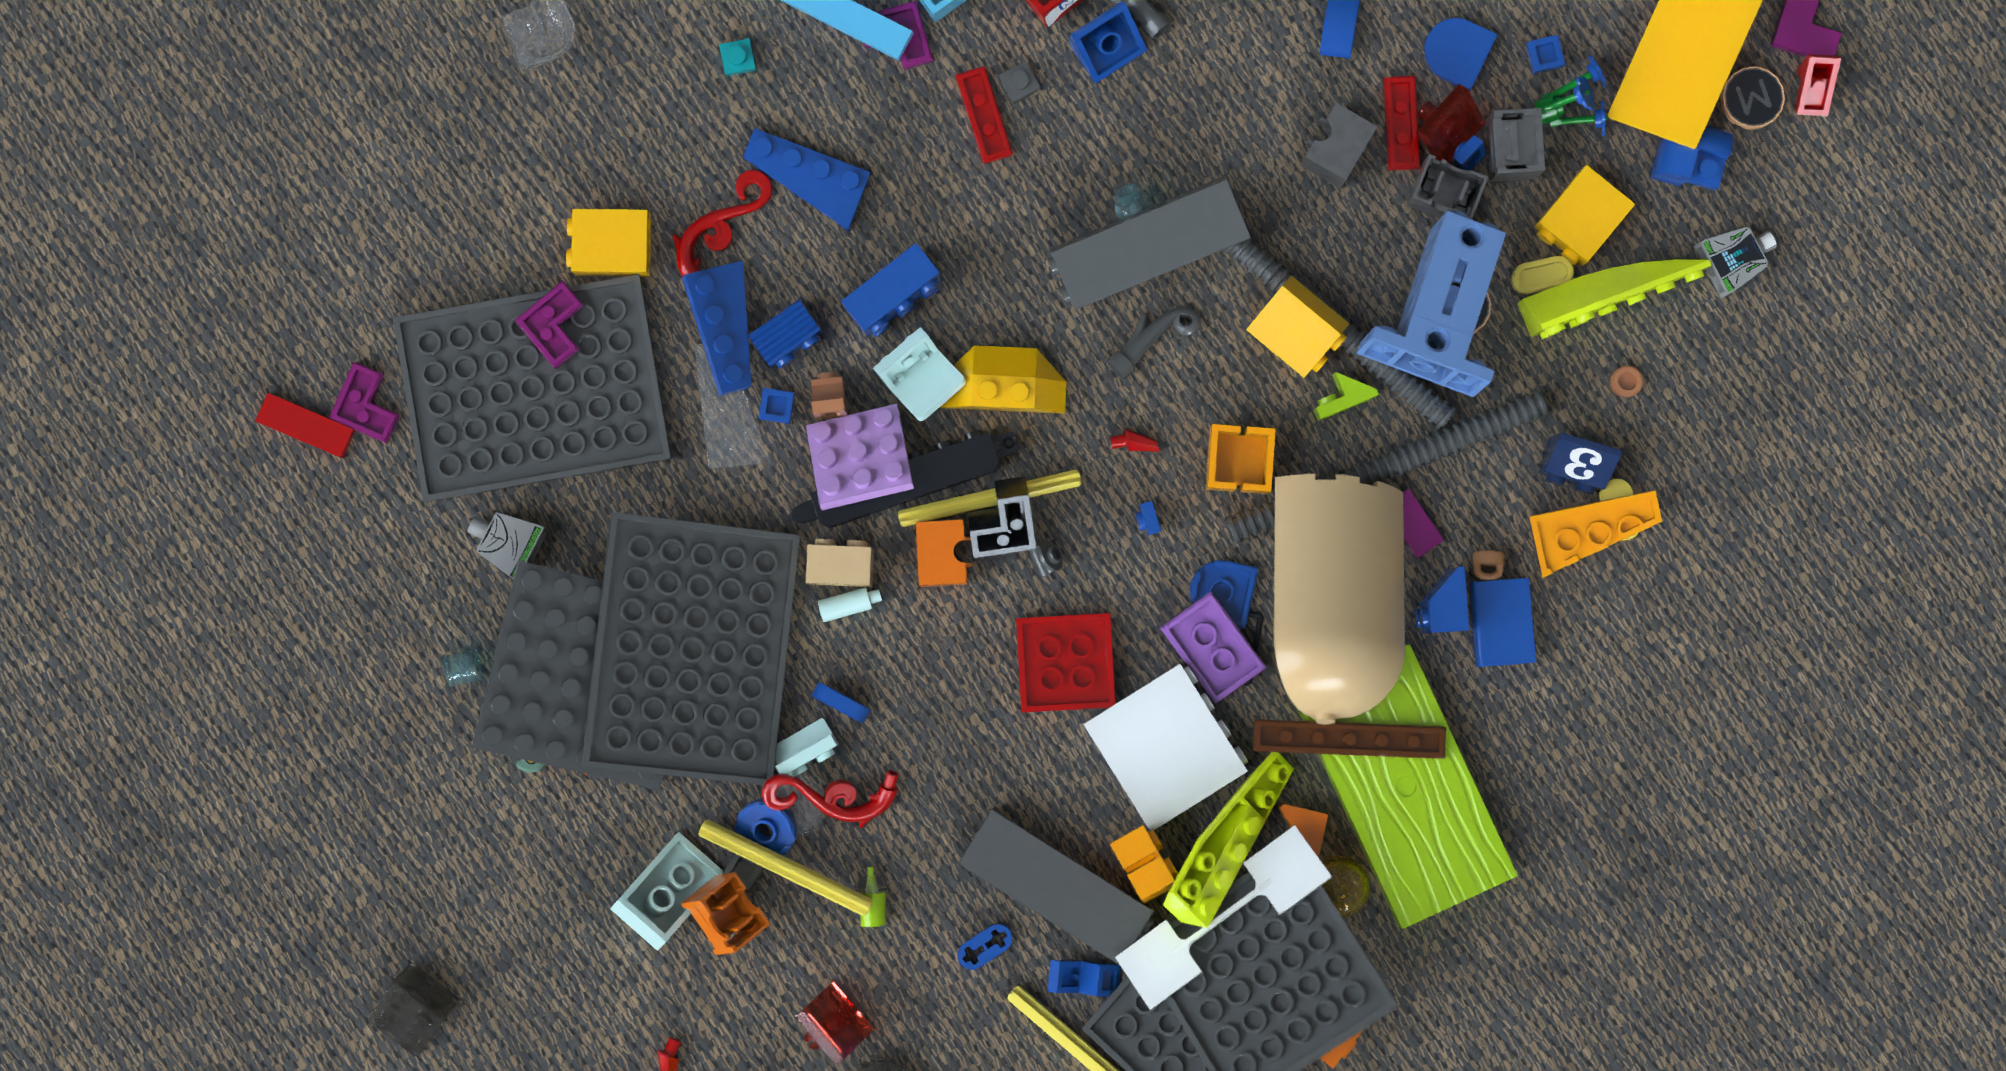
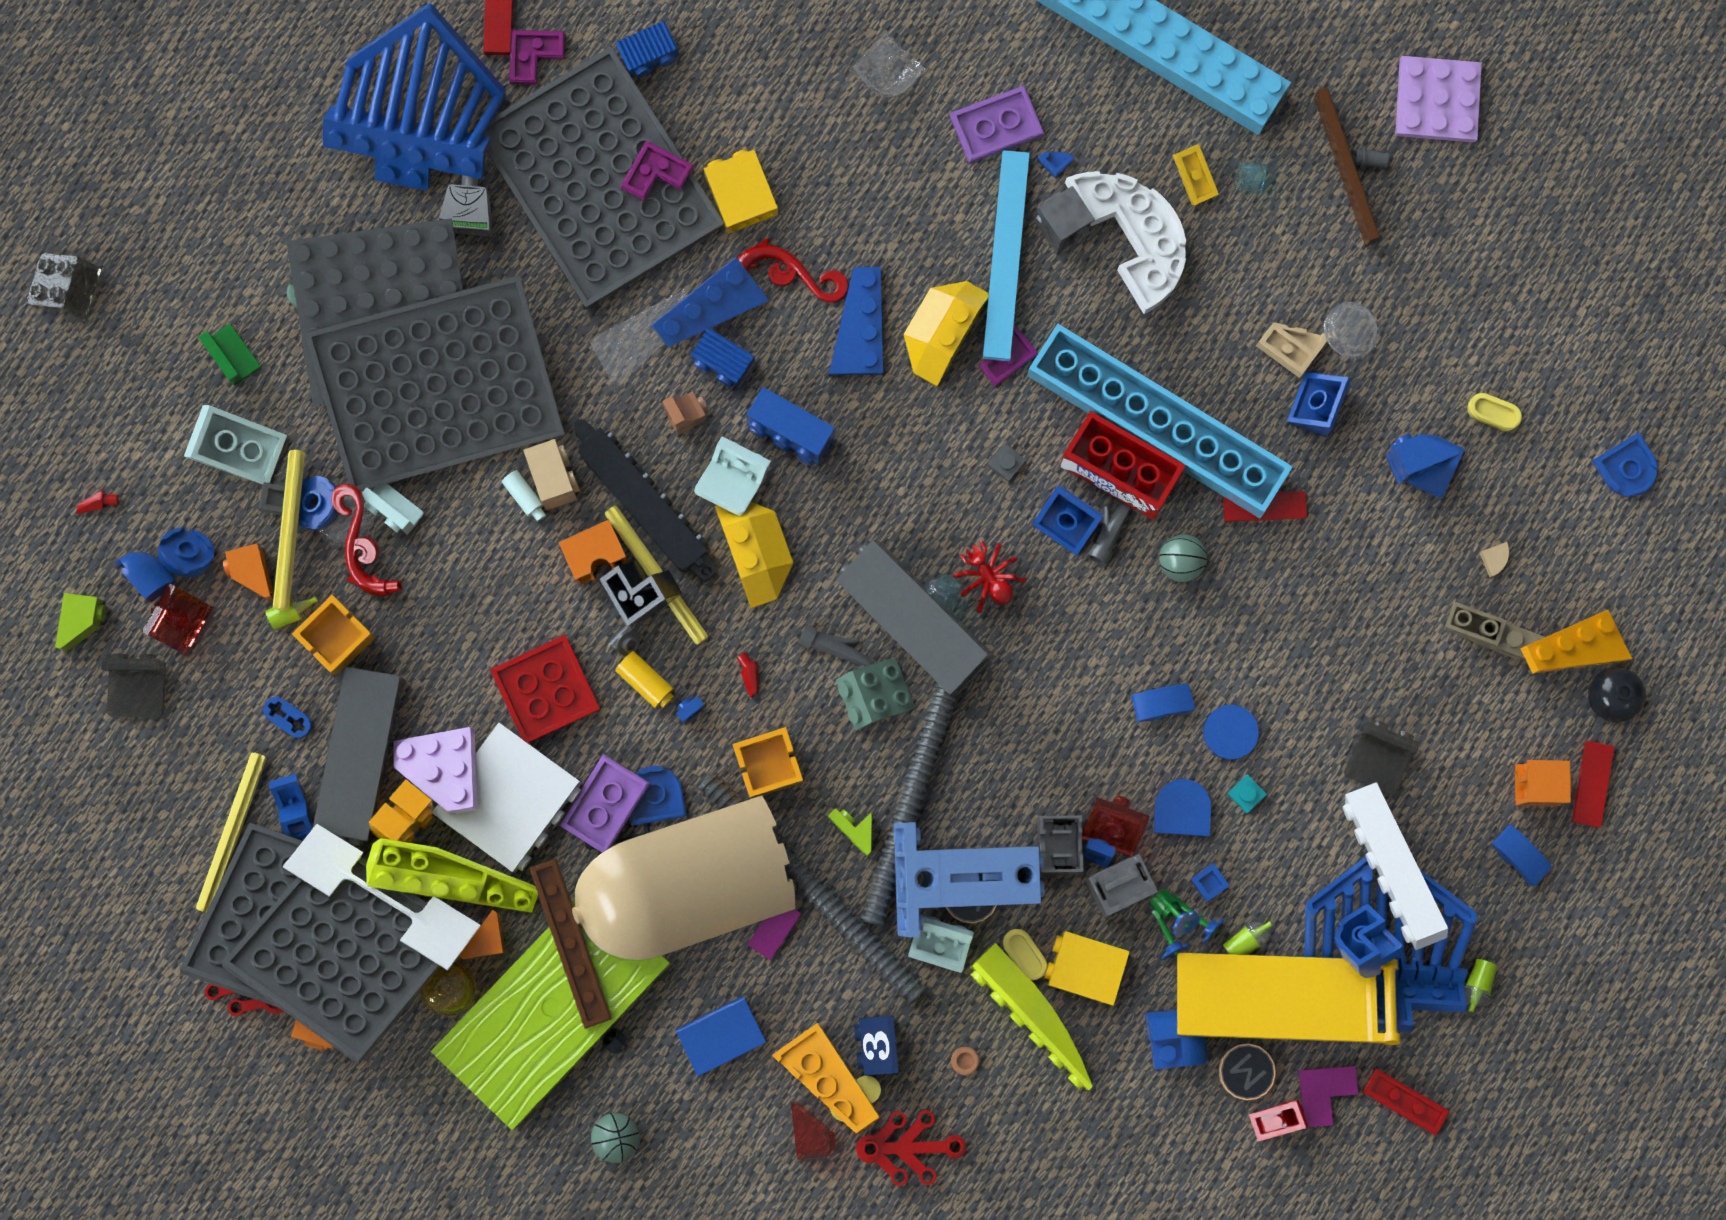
camera: 60 degrees right, 5 degrees down
(412, 279) = (648, 50): none -> blue brick
(414, 583) = (402, 146): none -> blue plate
(462, 668) = (352, 212): clear light blue brick -> none
(564, 858) = (230, 354): none -> green panel
(723, 910) = (235, 494): orange piece -> none
(737, 57) = (933, 231): teal plate -> none
(764, 987) = (186, 552): none -> blue tile
(773, 1037) = (146, 574): none -> blue brick
(776, 406) = (662, 374): blue plate -> none
(810, 926) = (249, 569): none -> orange slope
(841, 702) = (441, 522): blue beam -> none
(847, 89) = (942, 327): none -> yellow wedge
(859, 457) = (645, 455): lavender plate -> none
(919, 863) = (334, 634): none -> light orange piece
(984, 115) = (967, 445): red tile -> none
(1099, 553) = (645, 680): none -> yellow brick
(1106, 803) = (441, 767): none -> lavender plate
(1140, 147) = (991, 579): none -> red animal
(1209, 319) = (874, 693): none -> sand green bracket
(1299, 327) = (895, 767): yellow brick -> none
(1338, 154) = (1058, 743): flat silver piece -> none
(1401, 123) = (1104, 786): red tile -> none
(1445, 605) = (711, 980): blue slope -> none
(1464, 734) = (614, 1041): none -> black hinge
(1488, 559) = (768, 1003): medium nougat tile -> none
(1503, 352) = (942, 944): none -> light aqua bracket
(1565, 772) = (615, 1138): none -> sand green piece
(1619, 39) = (1248, 939): none -> lime piece
(1640, 569) = (810, 1134): none -> clear red slope
(1691, 476) = (906, 1148): none -> red plant
(1735, 257) = (1105, 1109): torso -> none

